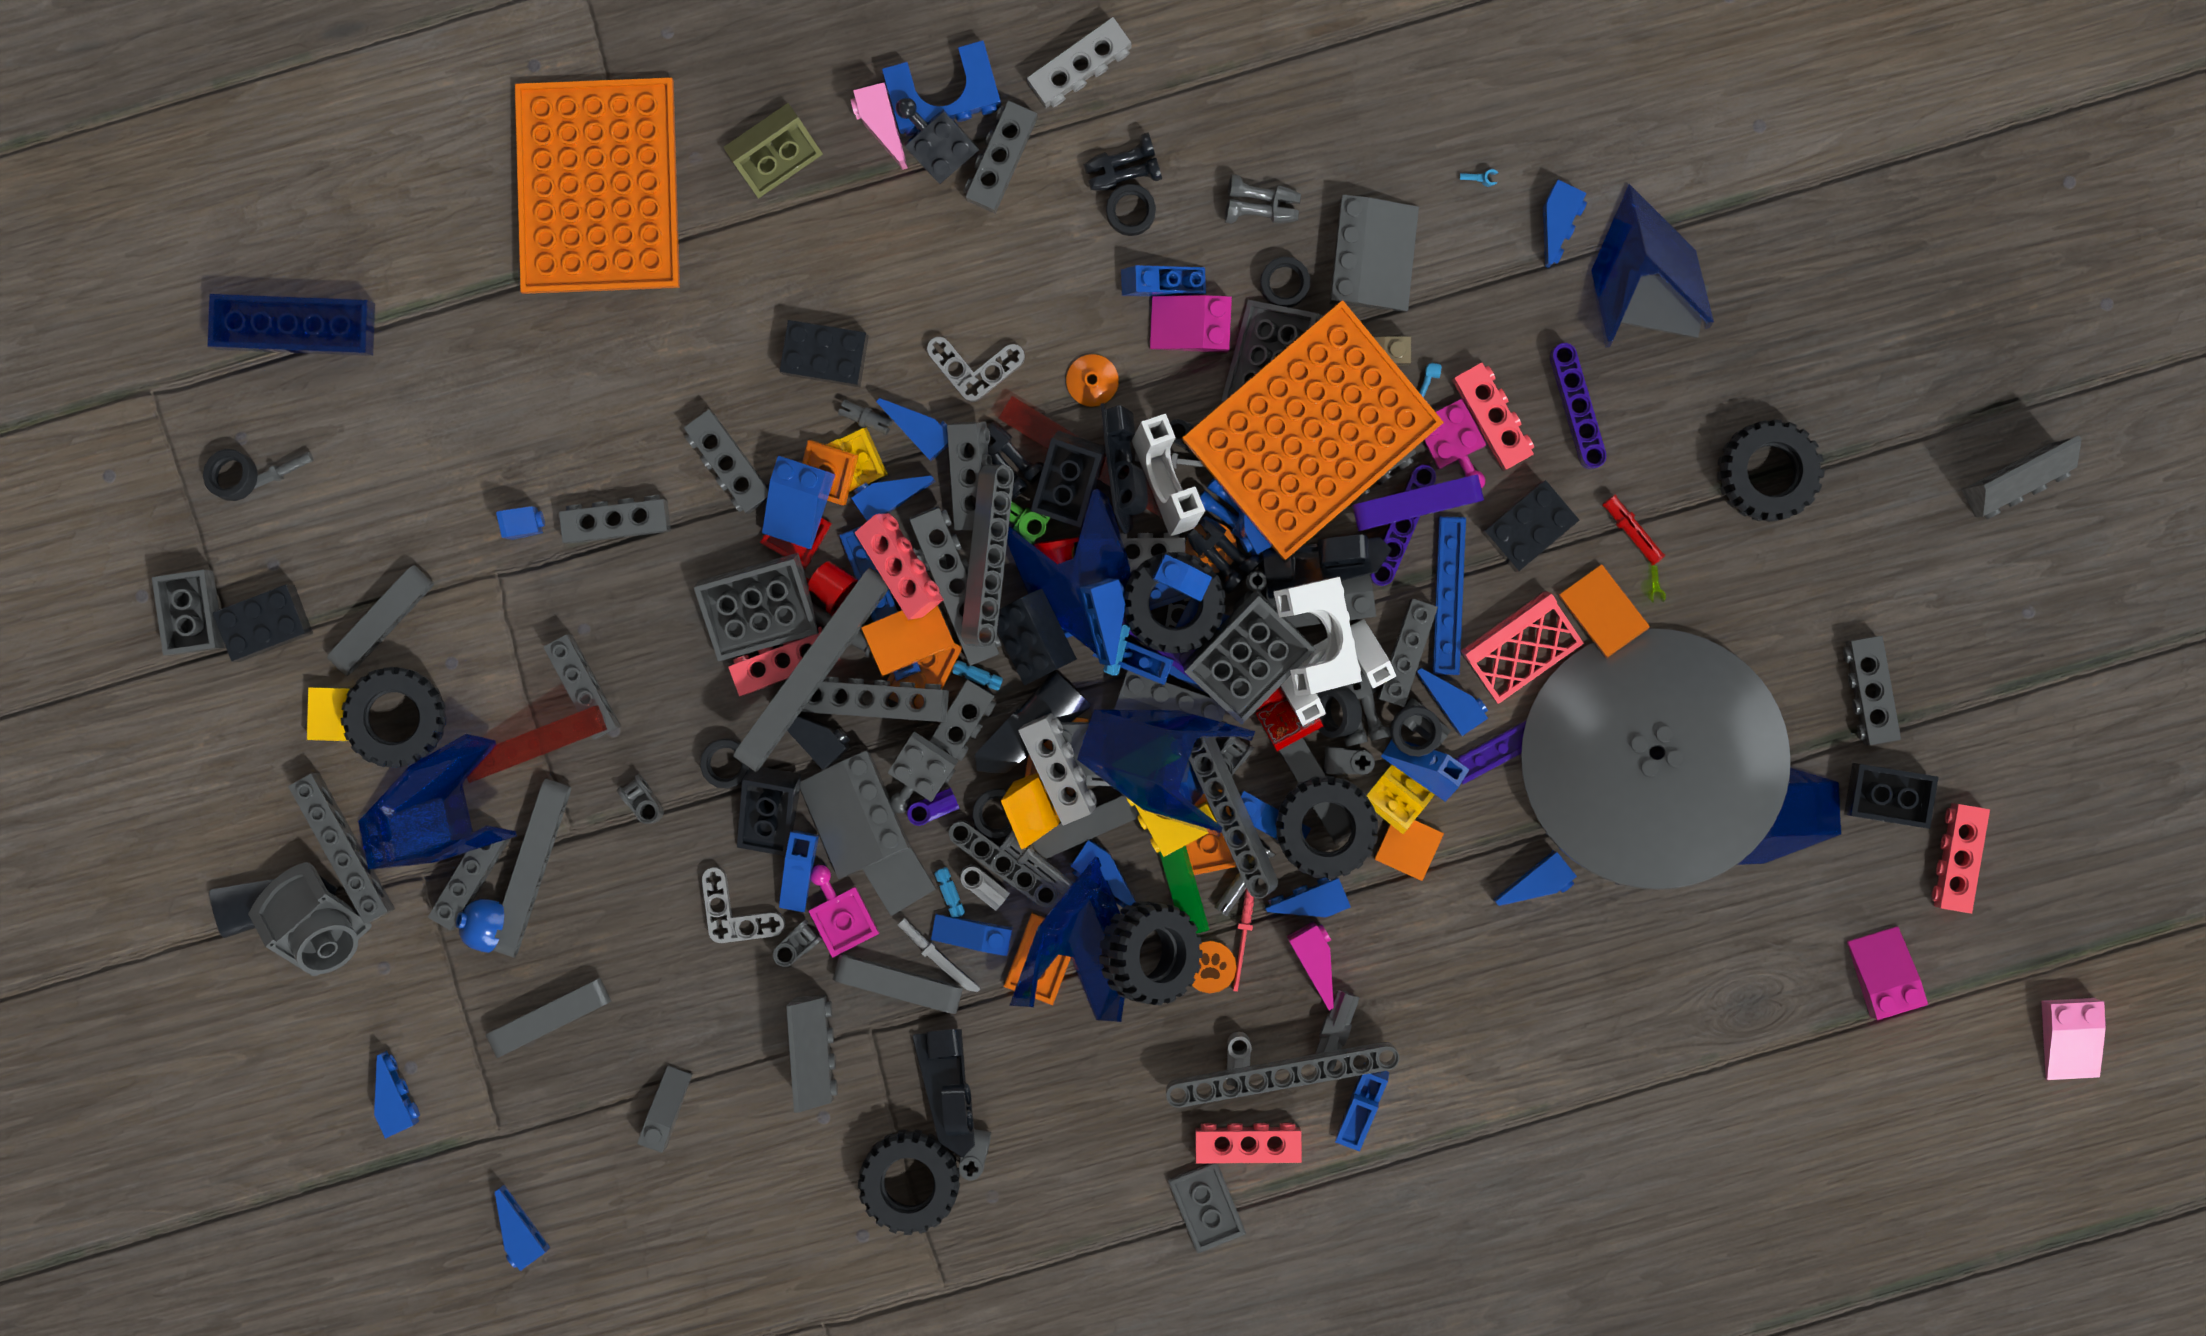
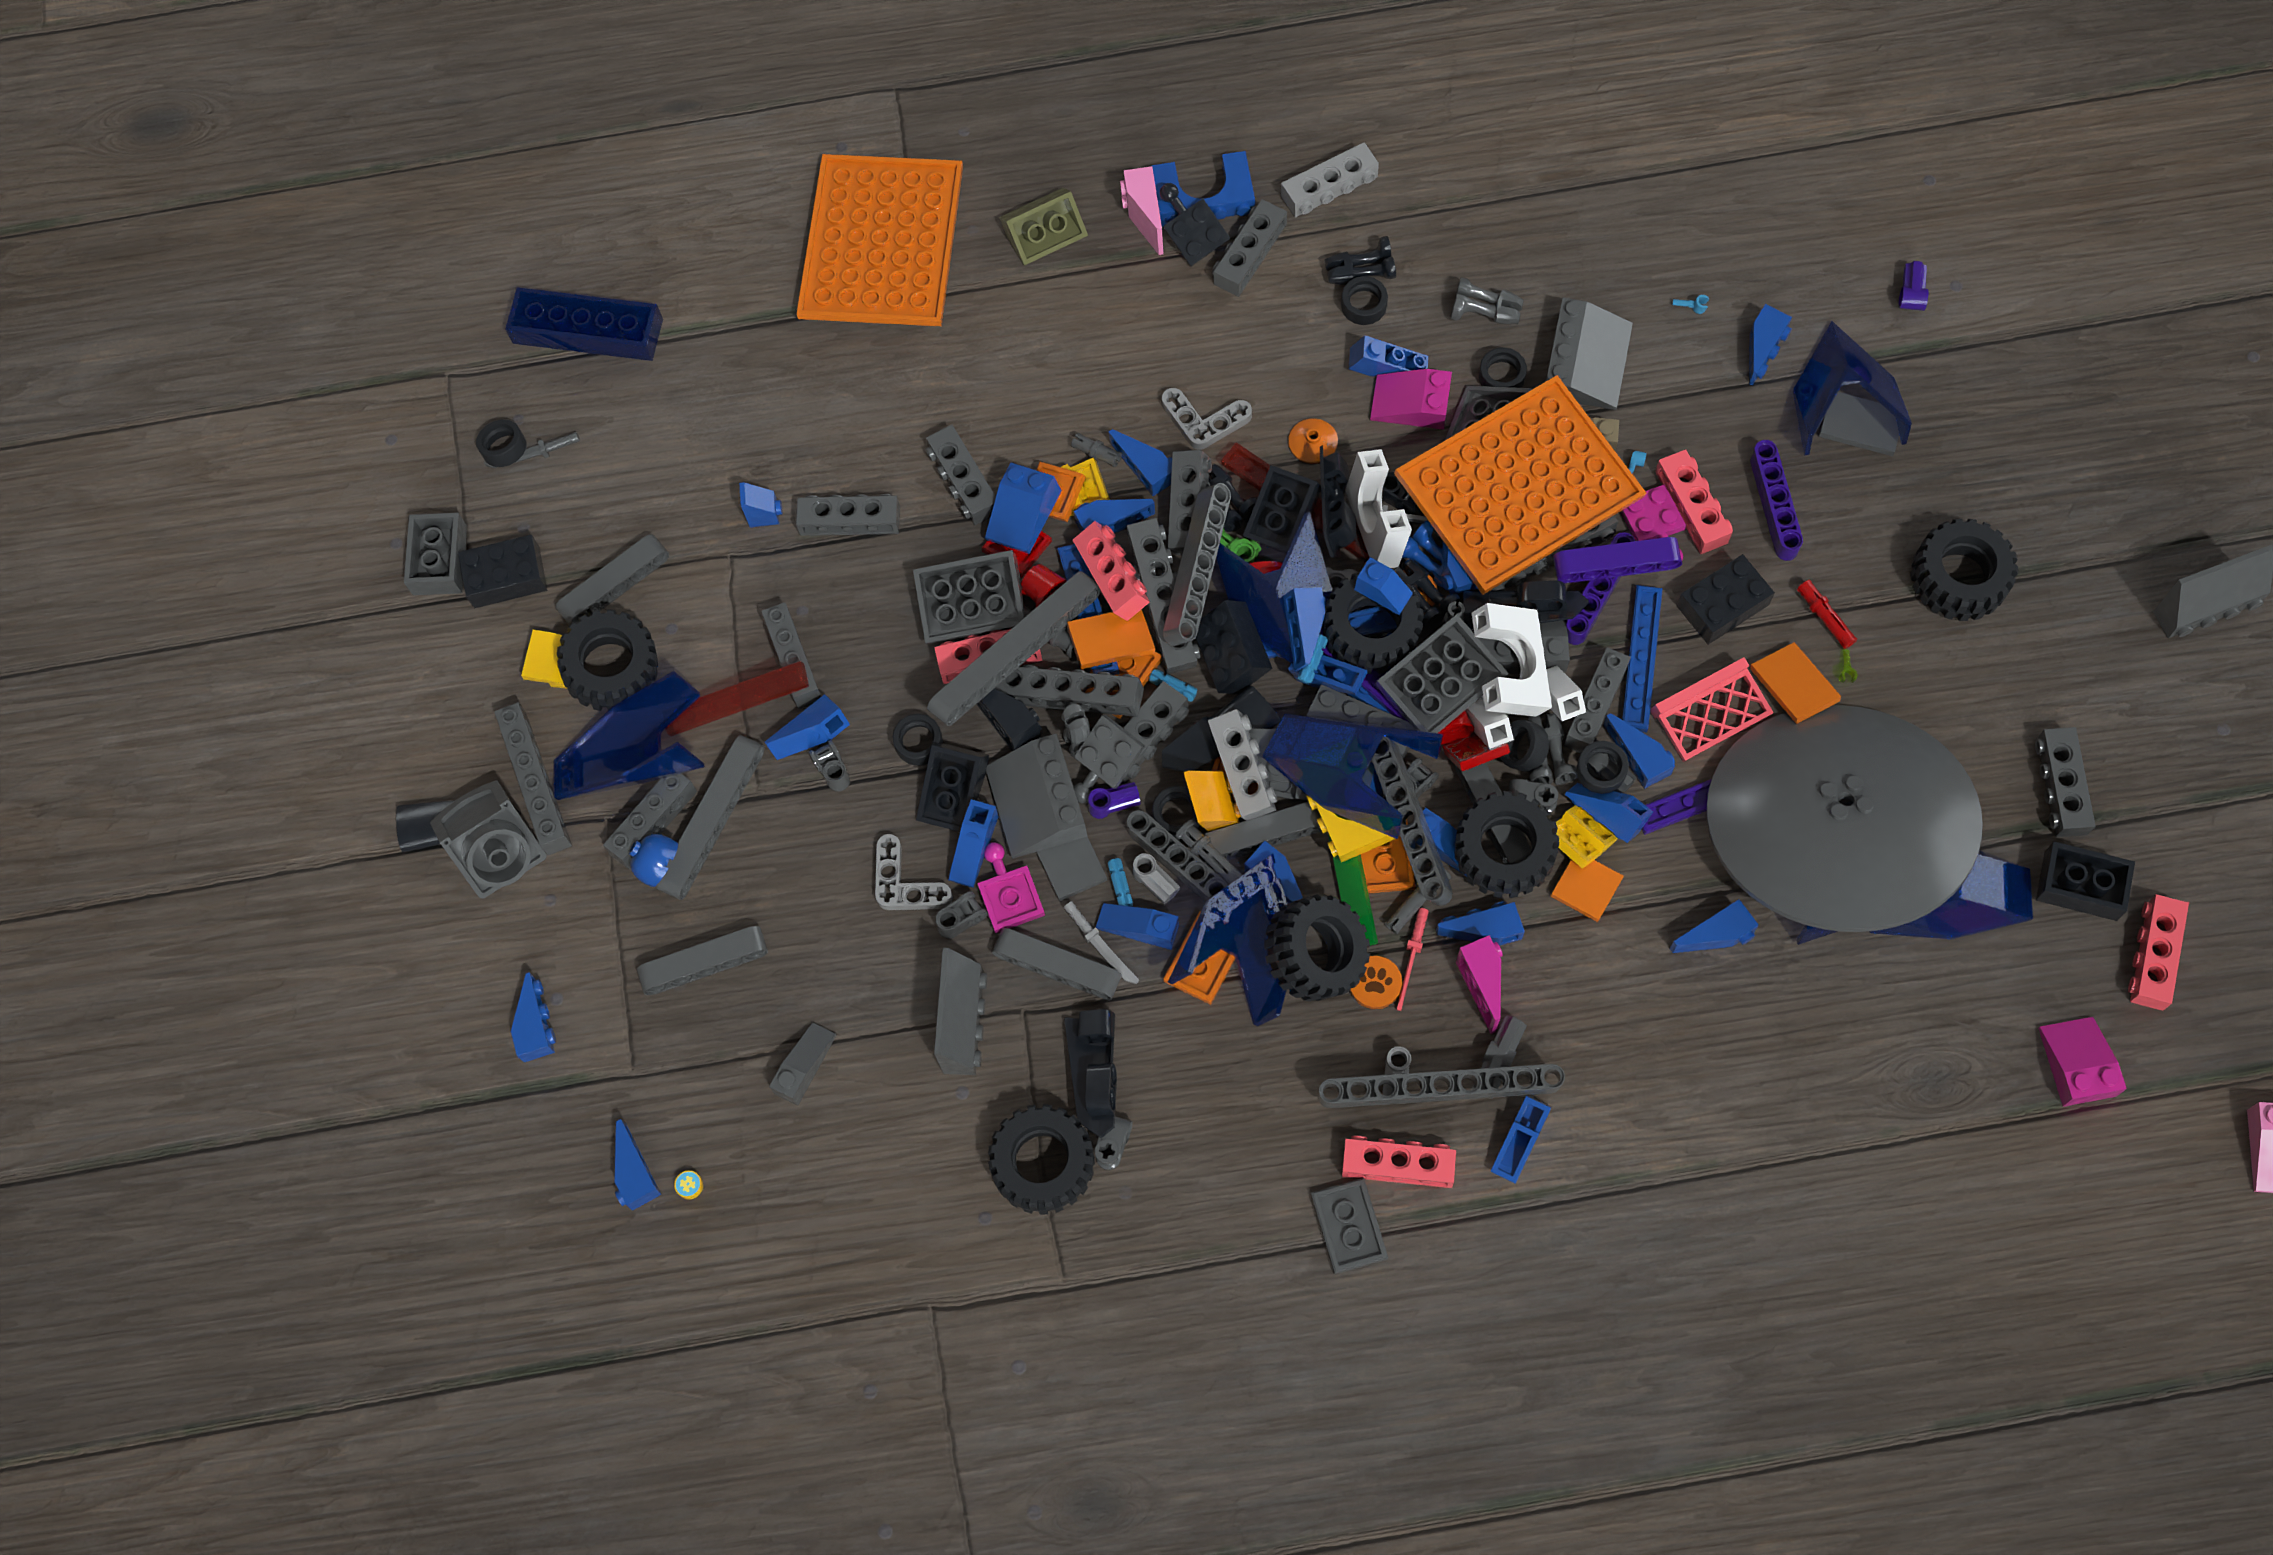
camera: 10 degrees right, 20 degrees down
(575, 1237) = (688, 1184): none -> tile
(617, 763) = (810, 728): none -> blue slope
(824, 353) = (1065, 391): black brick -> none
(885, 741) = (1076, 727): none -> dark grey piece
(1714, 145) = (1914, 291): none -> dark purple piece

